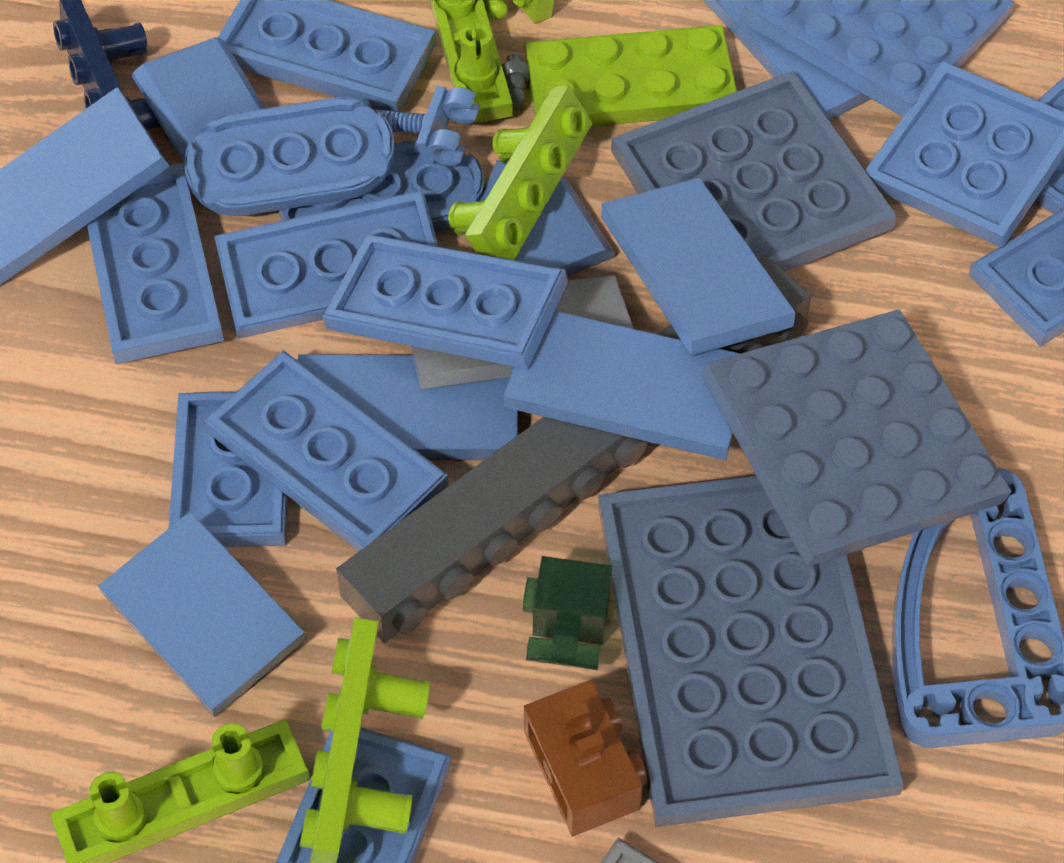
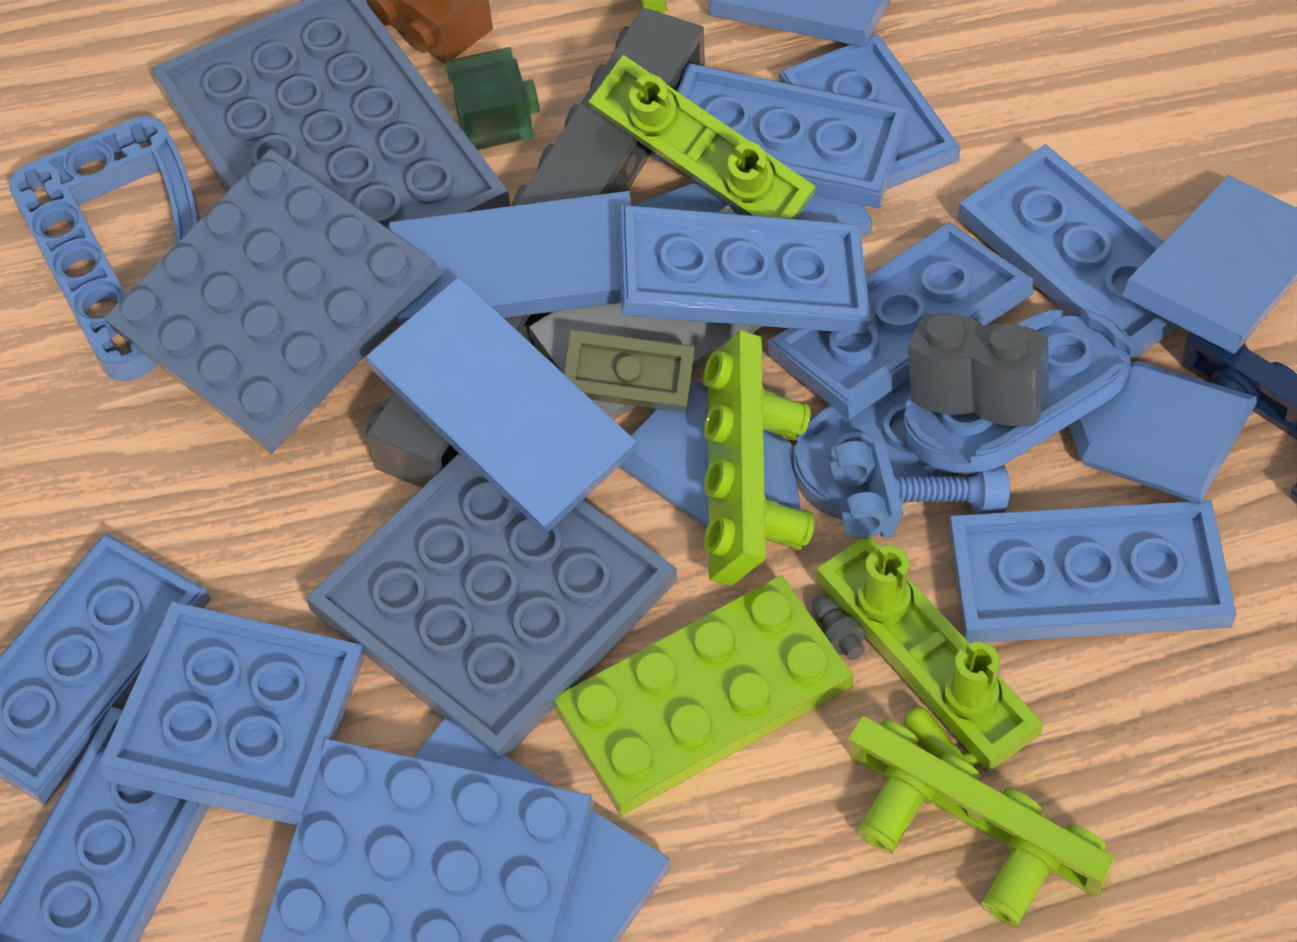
camera: 160 degrees right, 0 degrees up
(323, 132) = (979, 369): none -> dark grey brick
(422, 432) = (699, 144): none -> lime plate
(590, 276) = (630, 370): none -> olive plate

